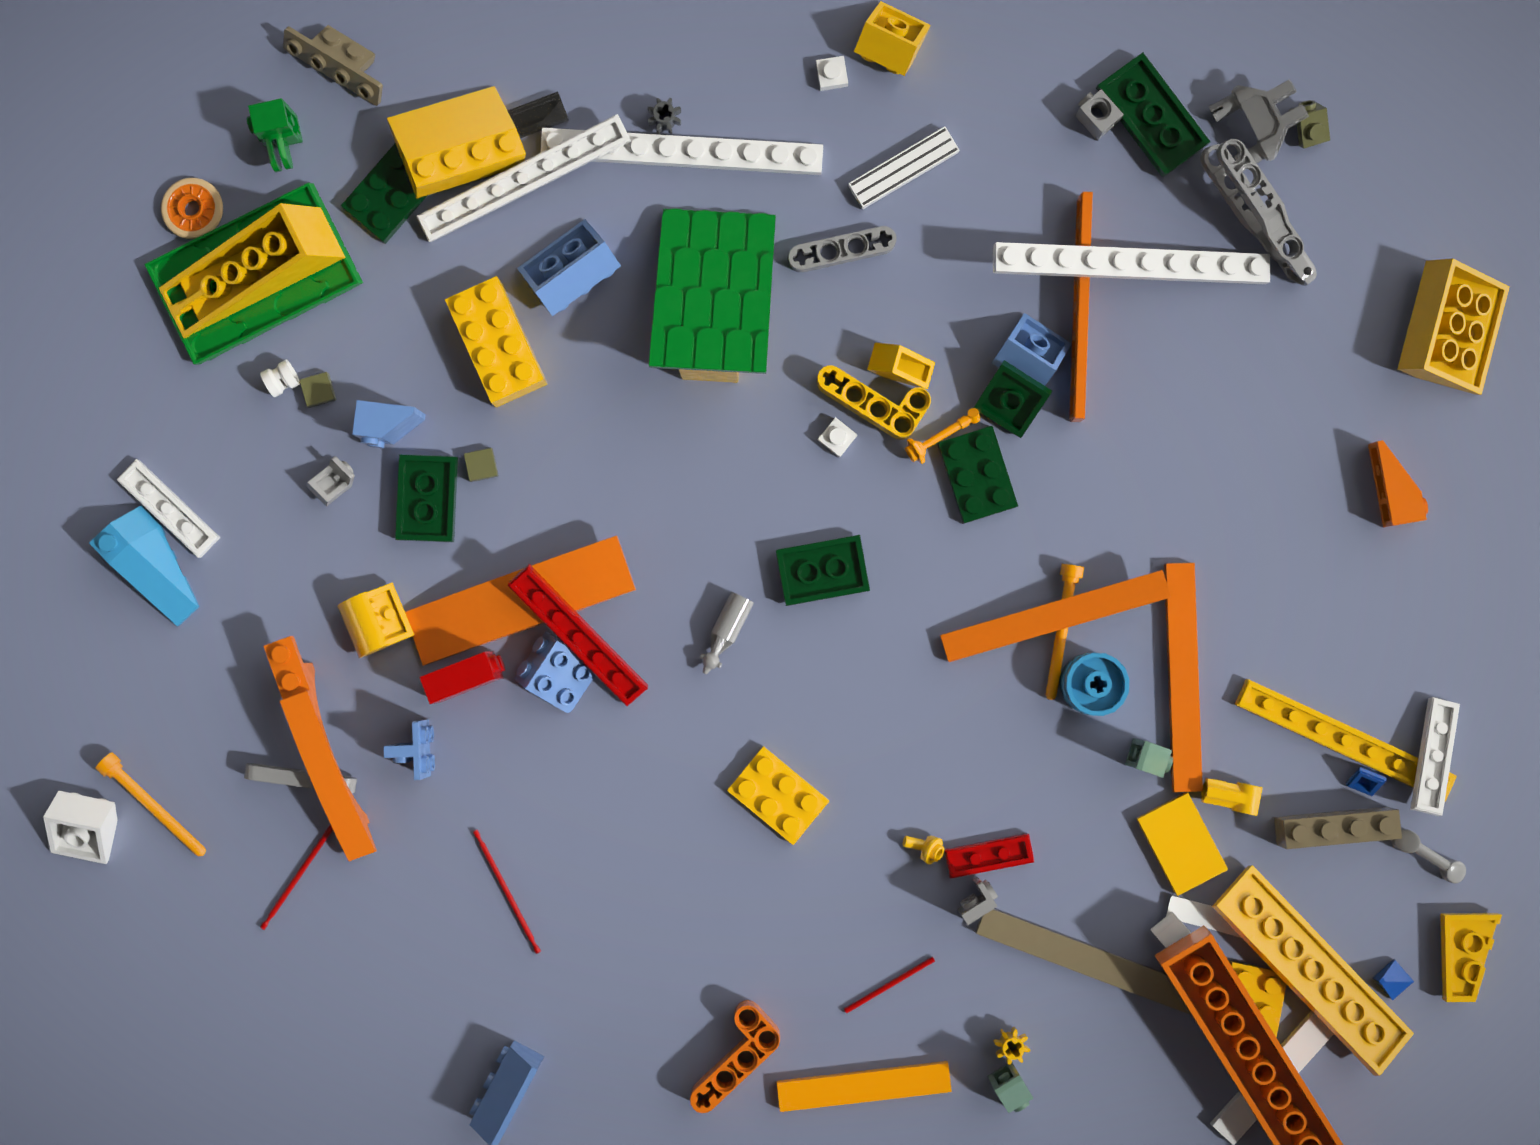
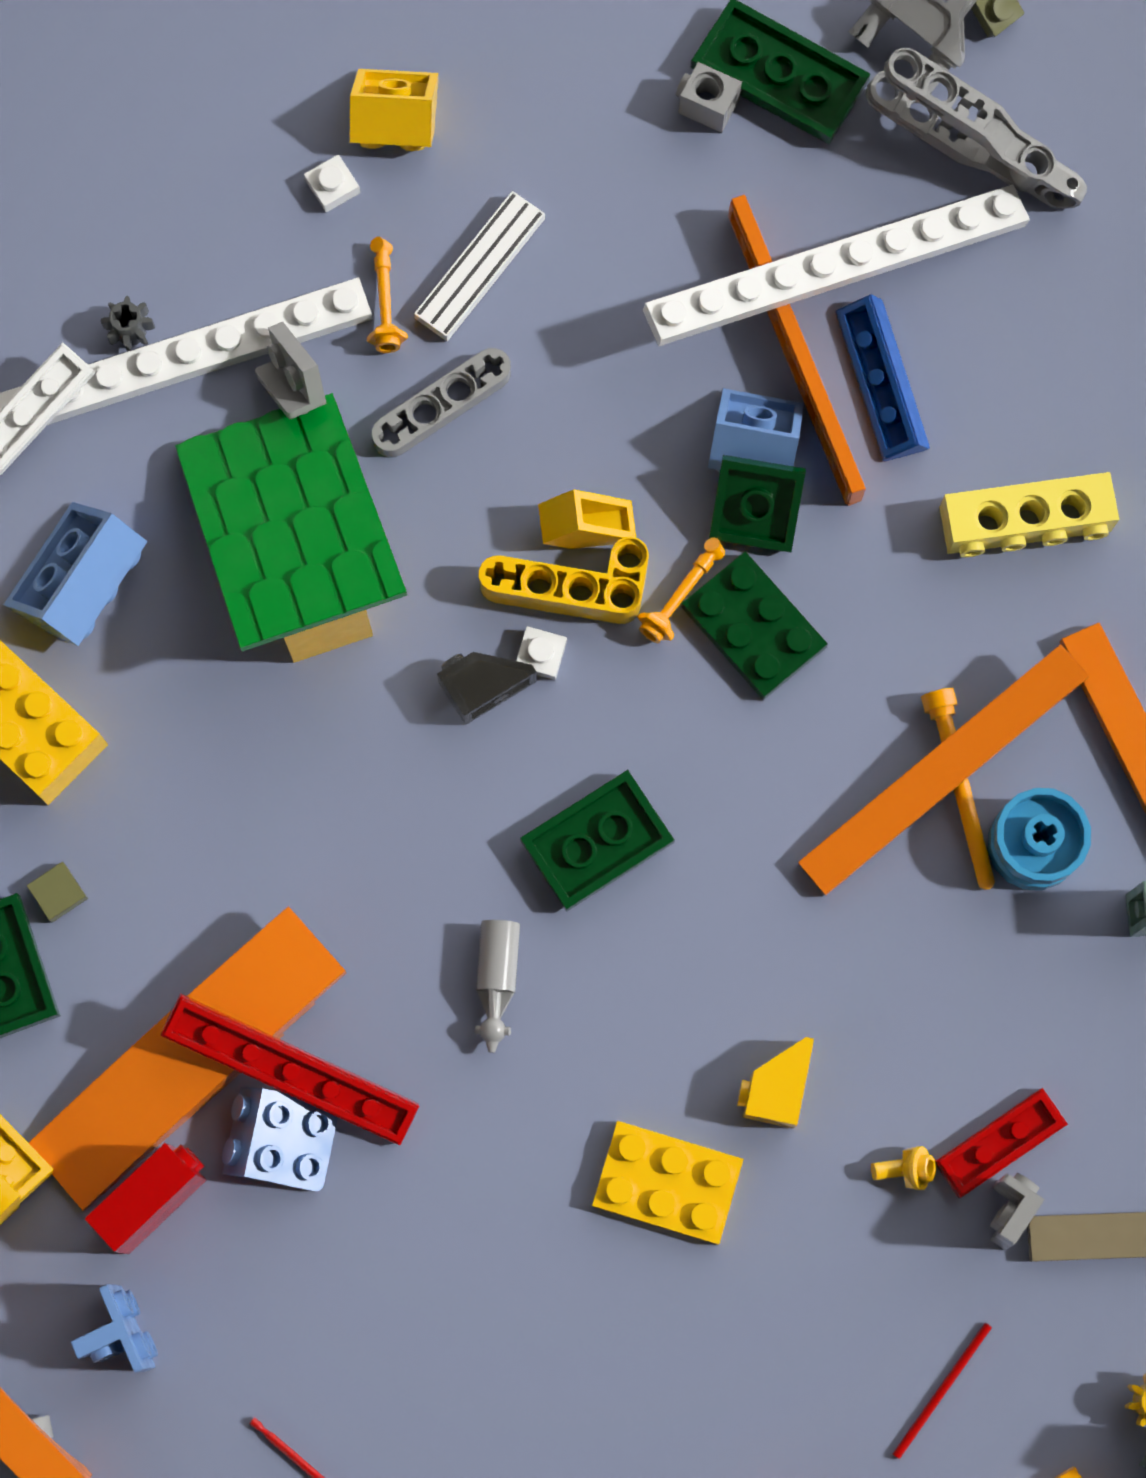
camera: 25 degrees left, 10 degrees down
(753, 194) = (291, 375): none -> light grey bracket
(792, 442) = (482, 682): none -> clear smoke slope
(825, 191) = (386, 336): none -> light orange piece
(868, 766) = (778, 1087): none -> yellow slope
(1128, 348) = (882, 378): none -> blue slope
(1225, 479) = (1089, 494): none -> light yellow brick

